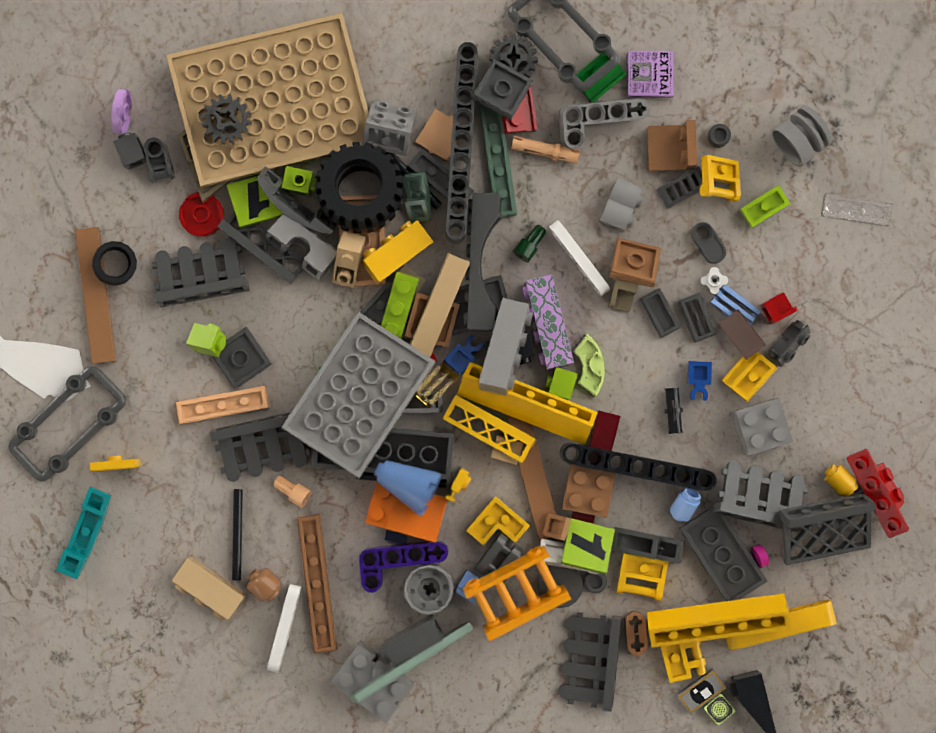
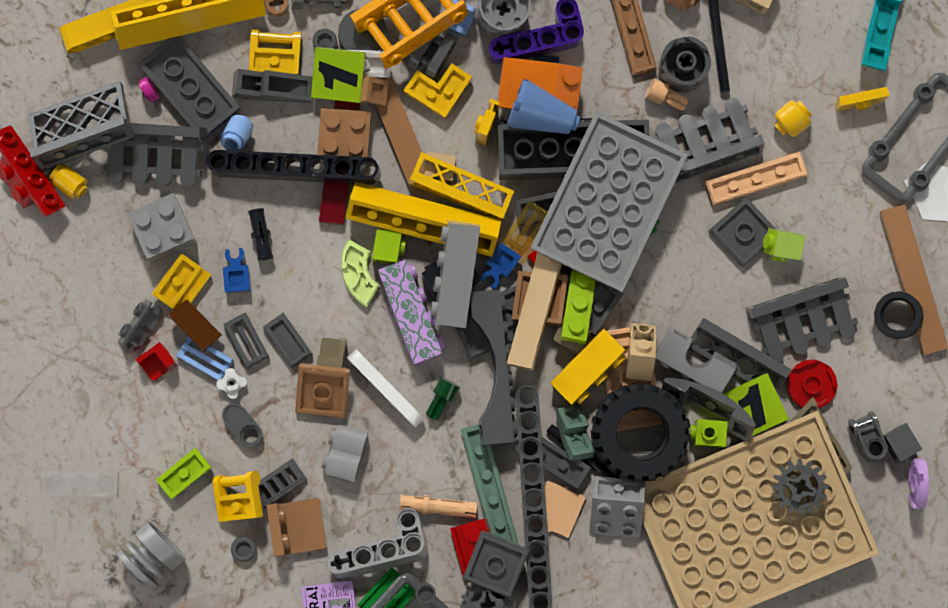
camera: 170 degrees right, 5 degrees down
(180, 454) = (793, 118): none -> yellow head
(258, 516) = (681, 50): none -> dark grey brick

